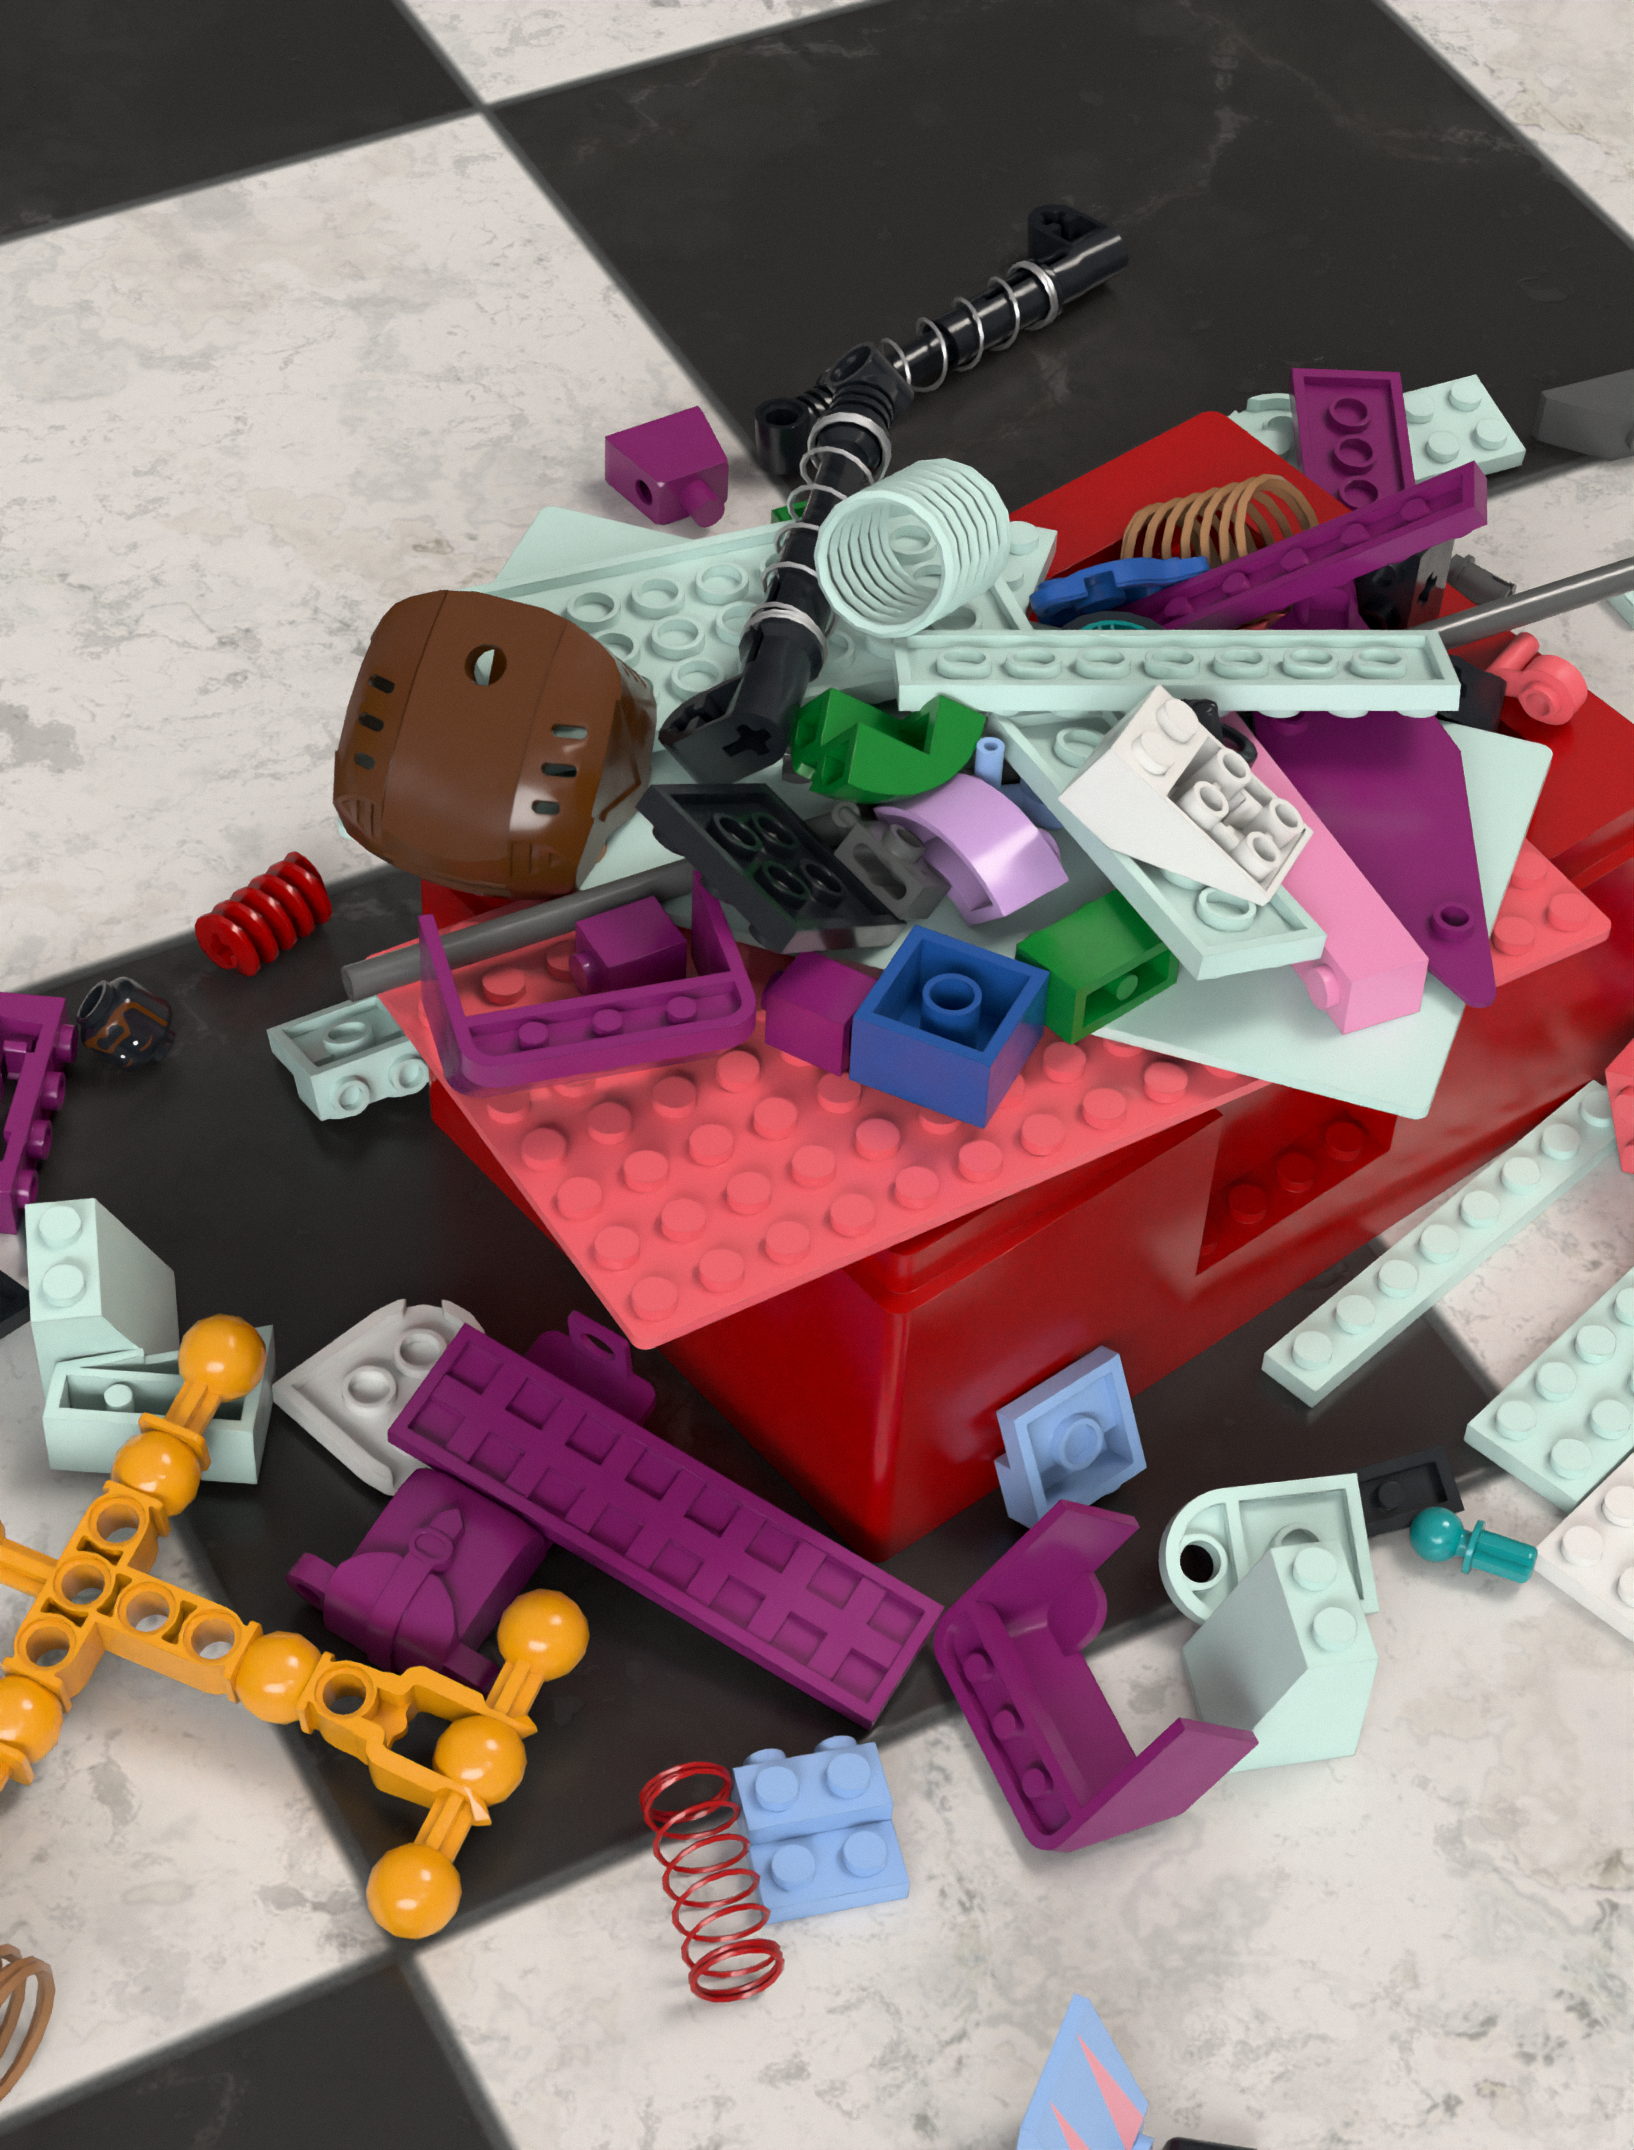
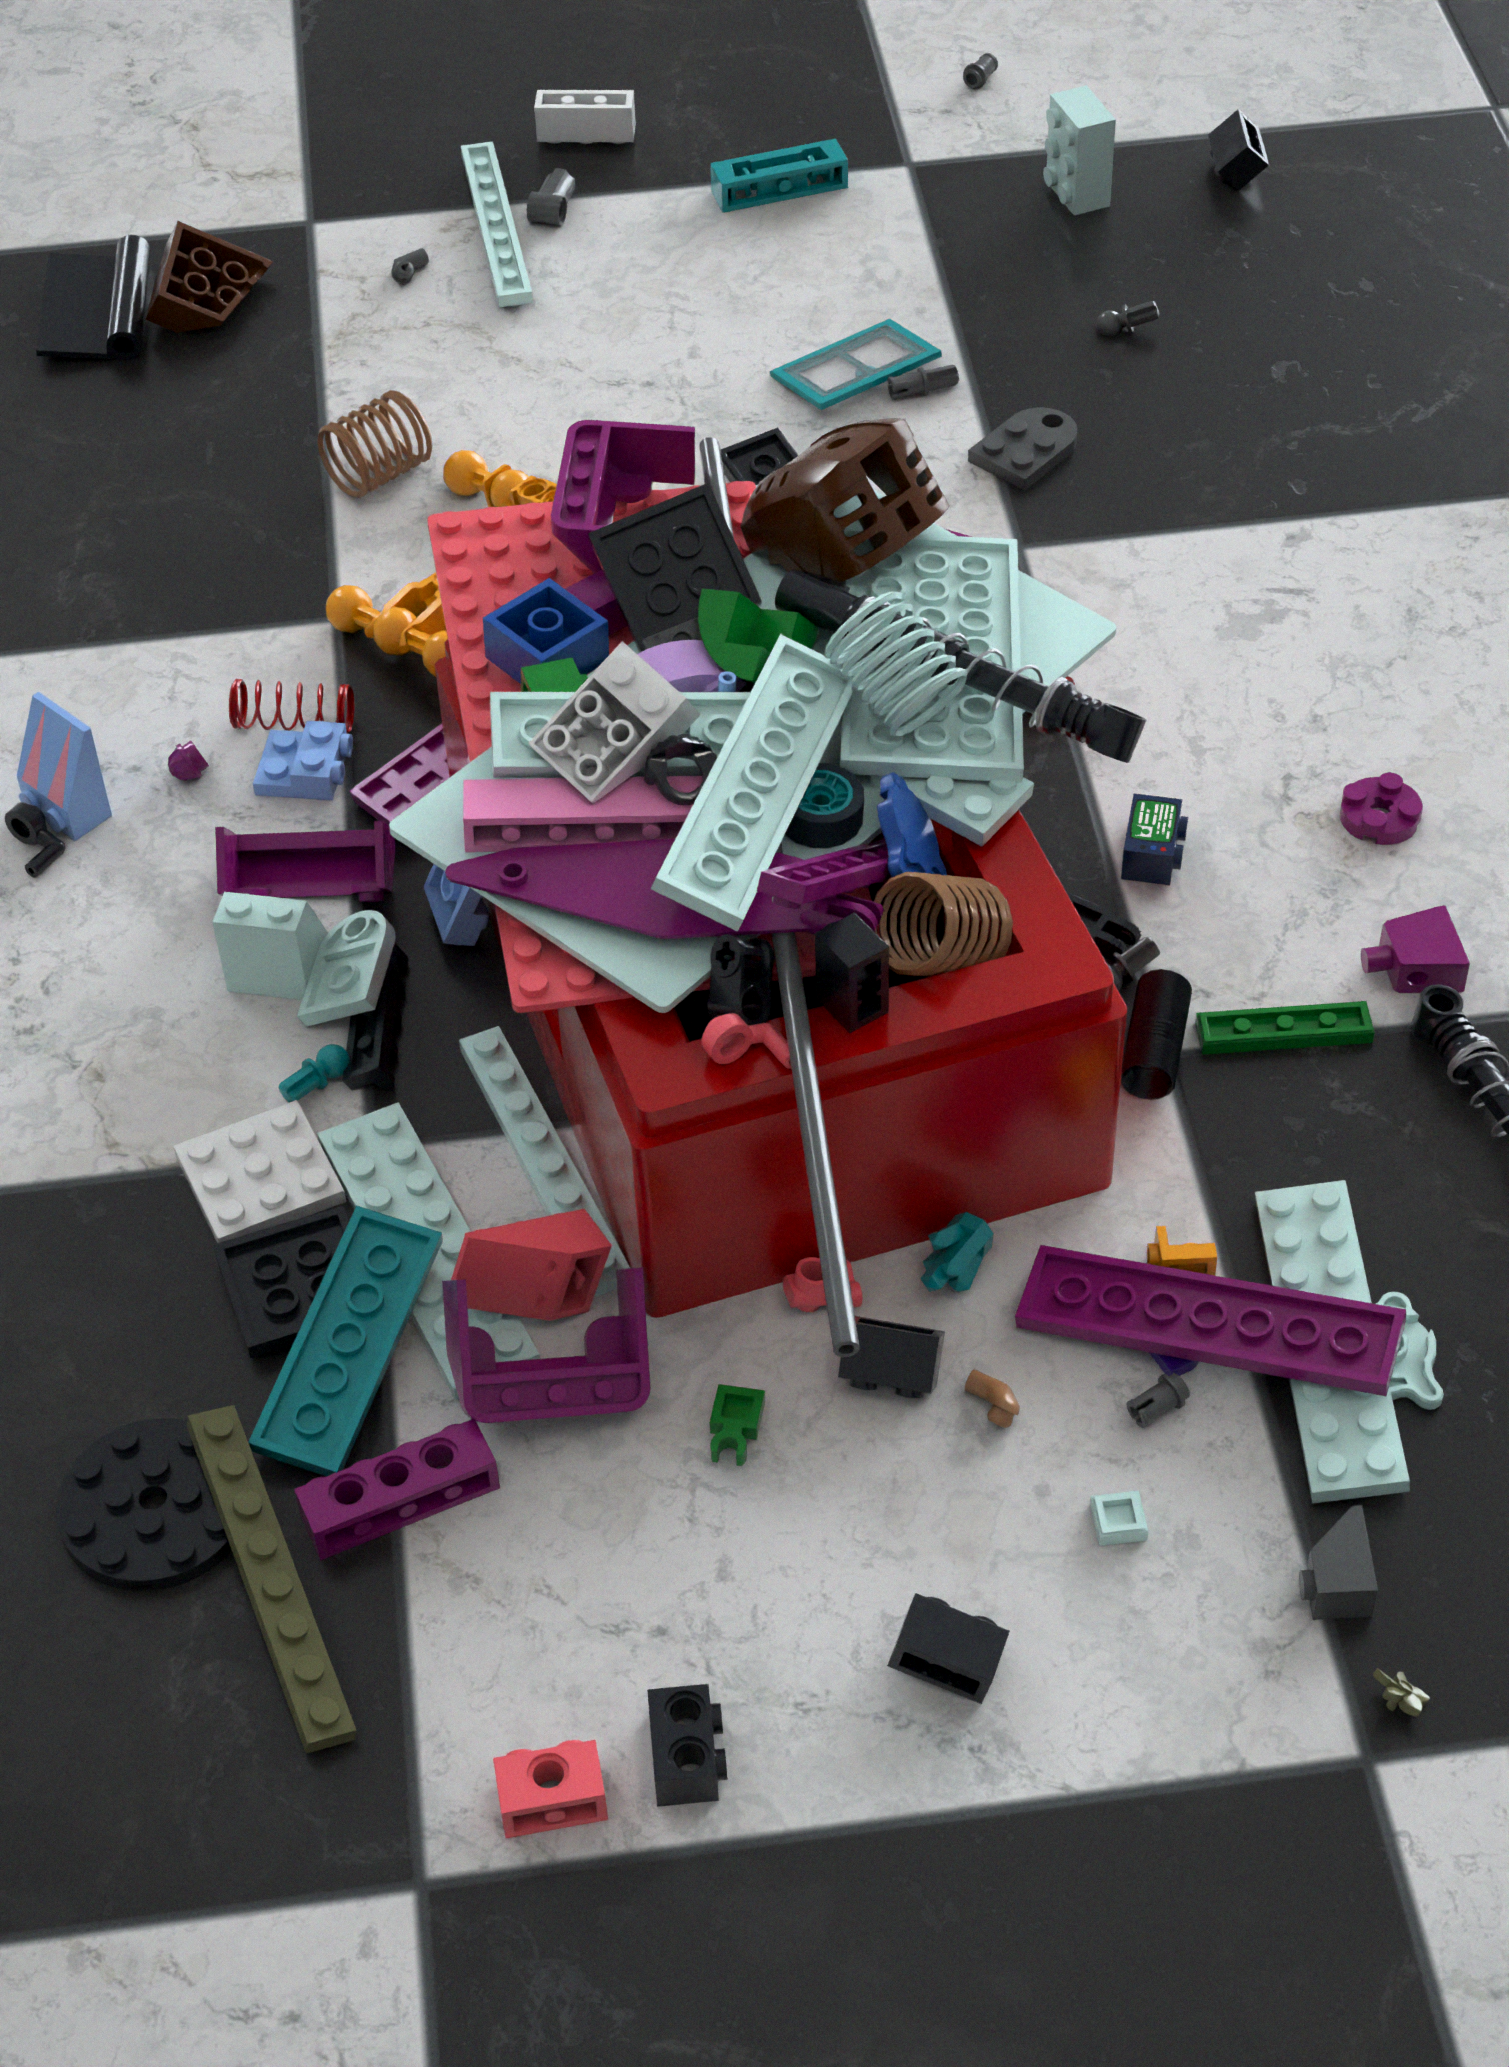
camera: 115 degrees right, 0 degrees up
(406, 522) = (1385, 792): none -> magenta plate
(903, 2008) = (186, 762): none -> magenta plate

